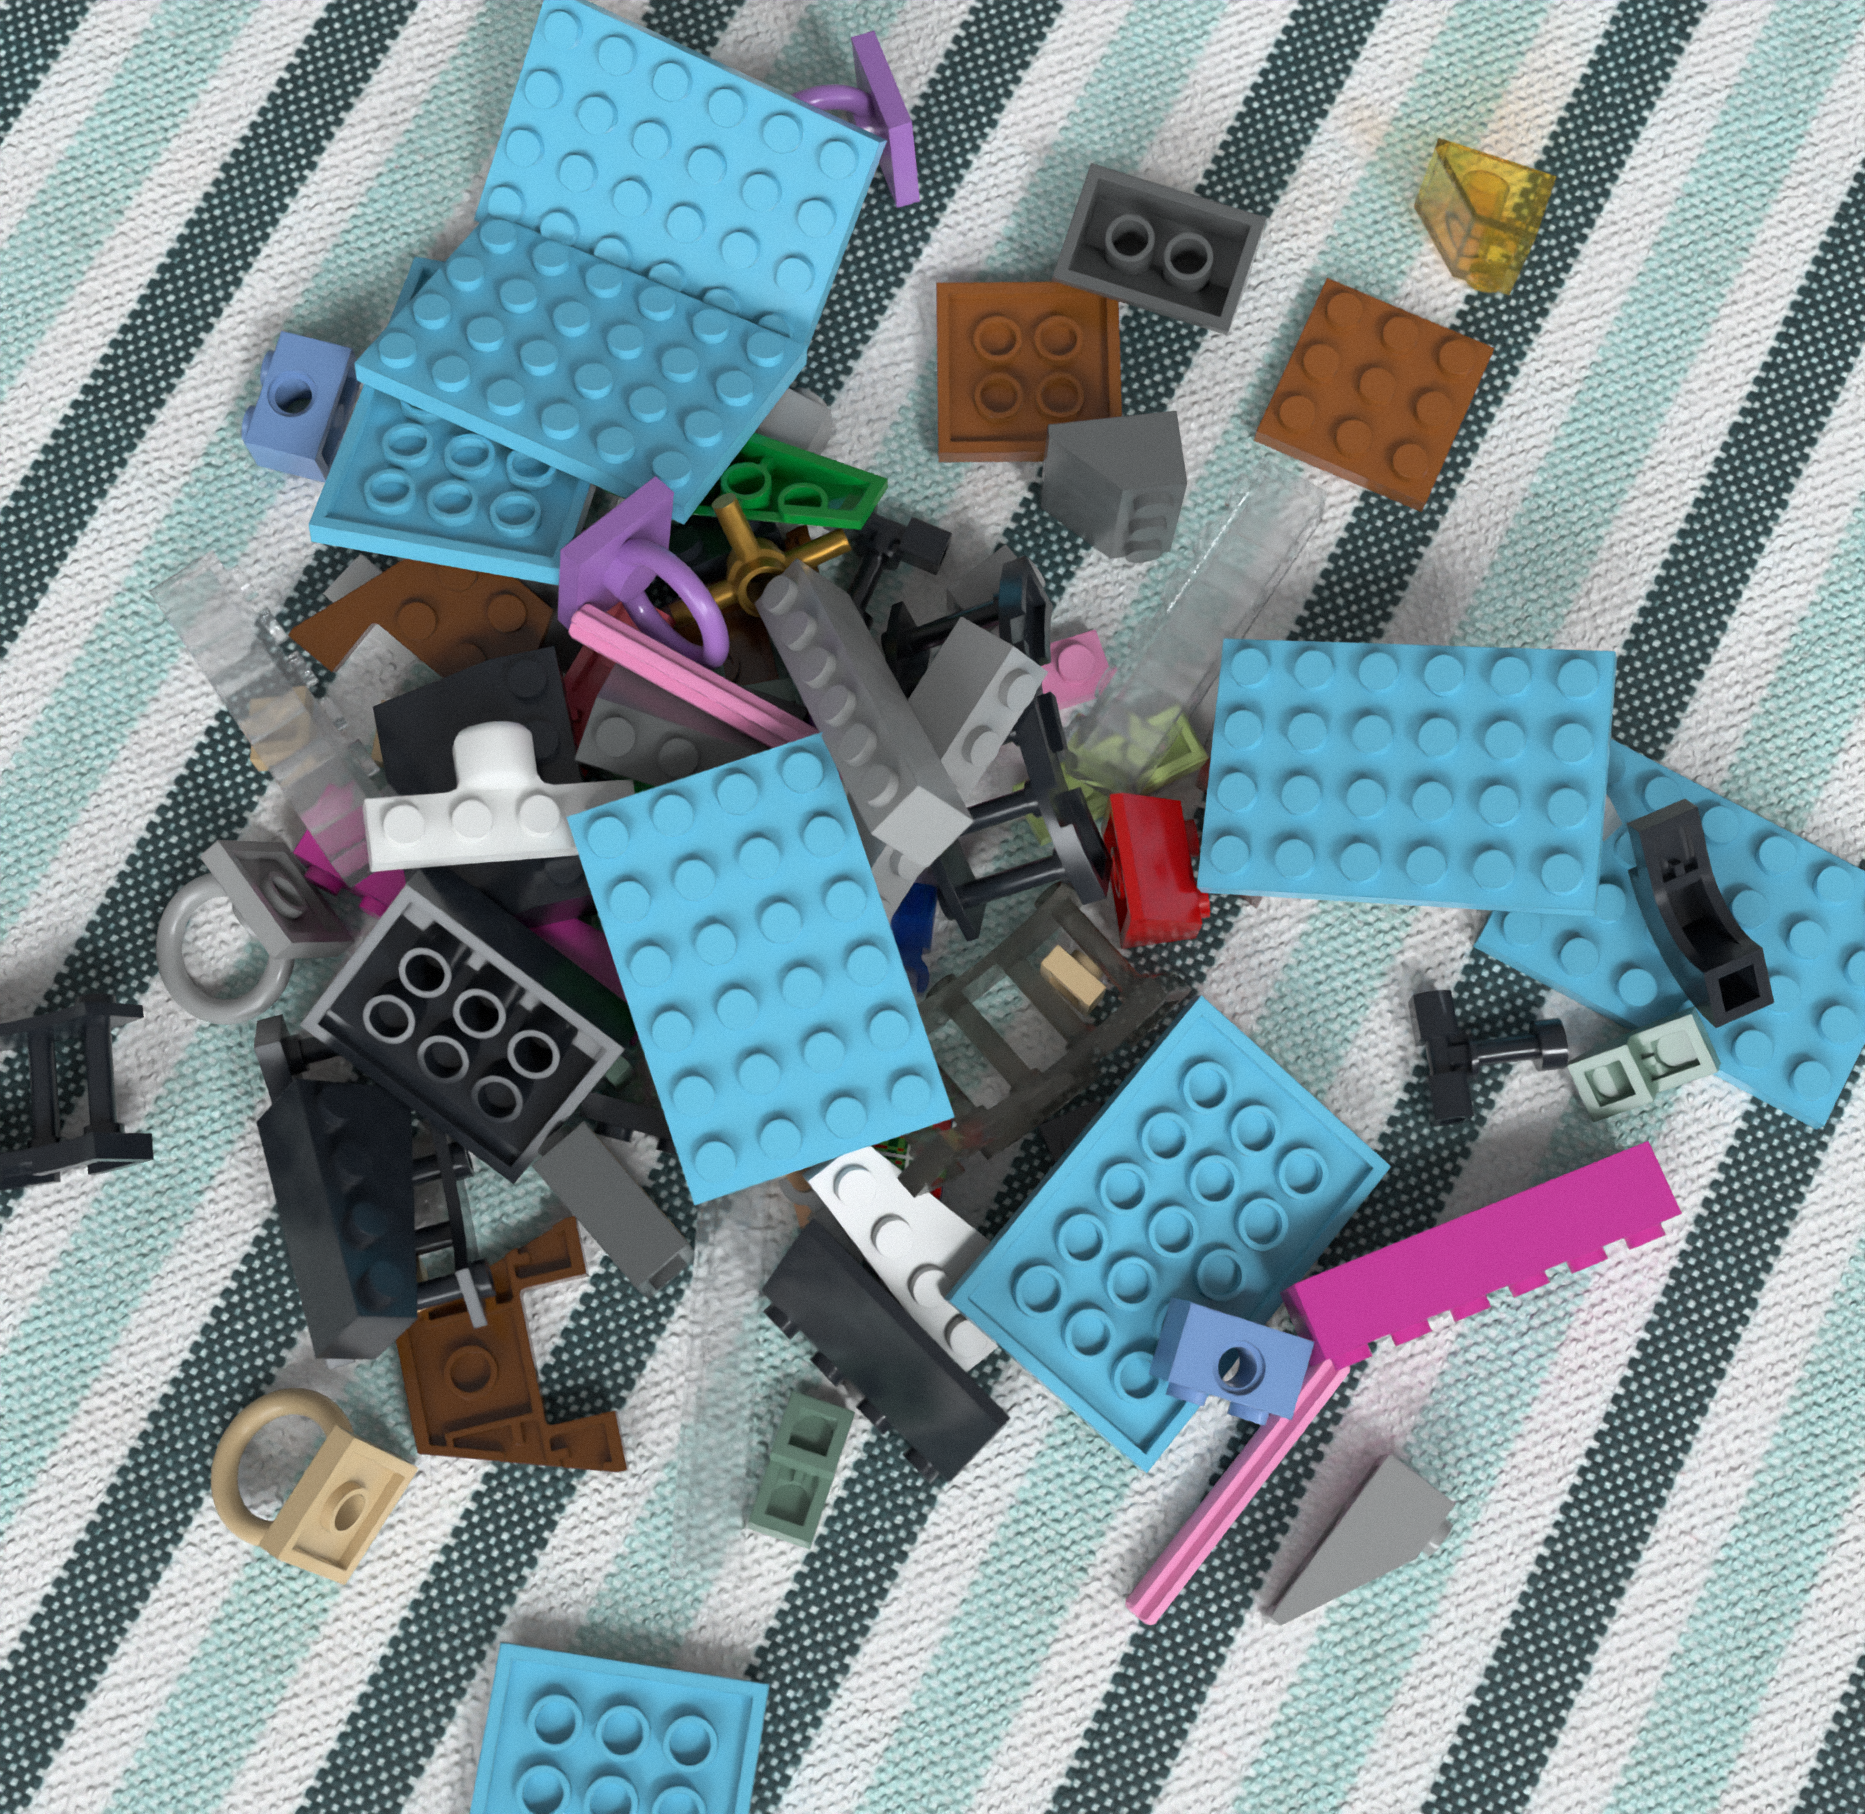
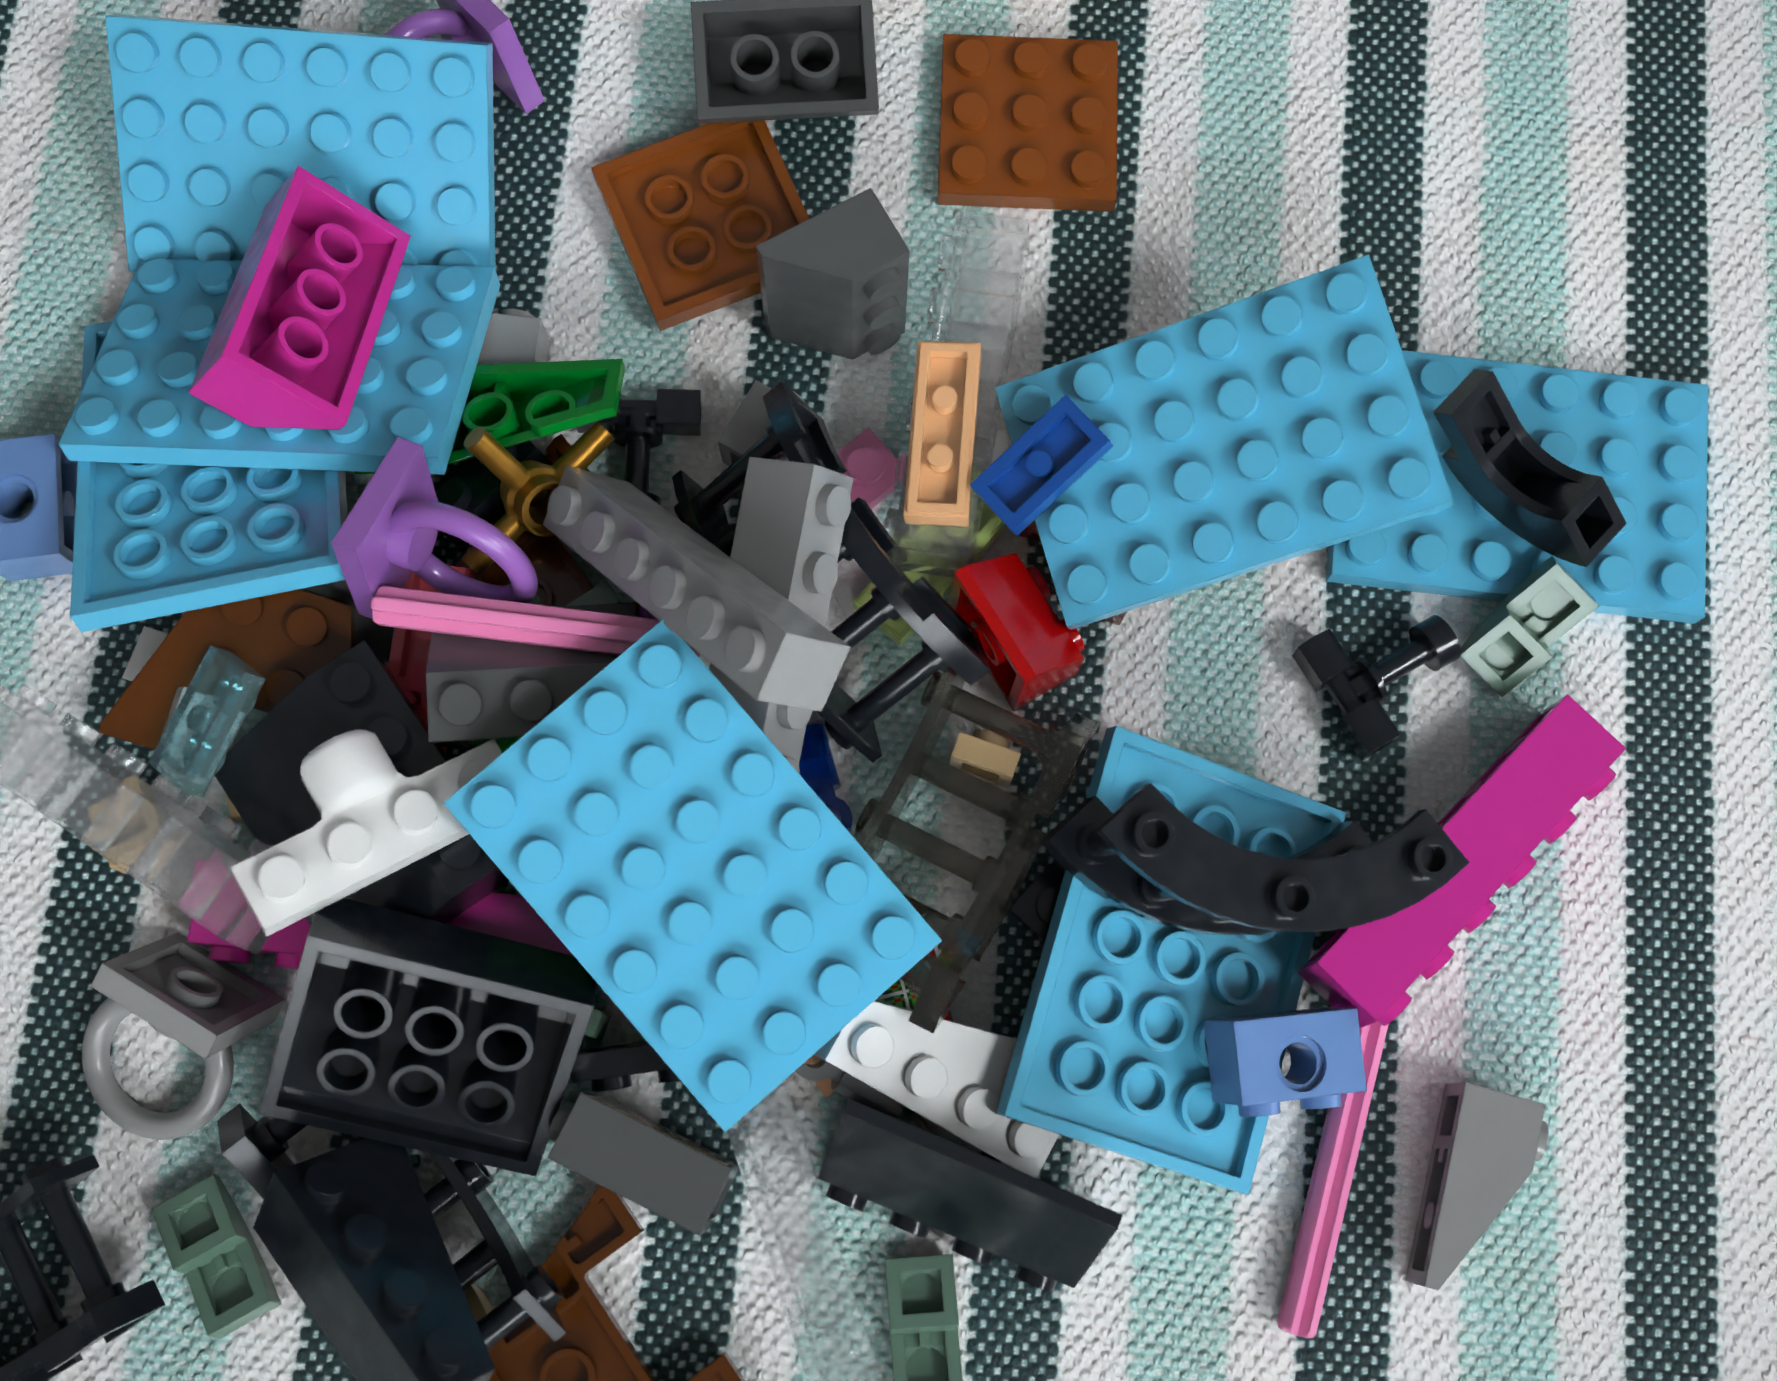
camera: 25 degrees left, 0 degrees up
(208, 1141) = (217, 1255): none -> sand green slope
(387, 663) = (206, 721): none -> clear light blue plate
(618, 323) = (302, 310): none -> dark pink slope
(1156, 662) = (942, 433): none -> light nougat tile
(1215, 1170) = (1198, 883): none -> black fence
(1231, 728) = (1041, 465): none -> blue plate

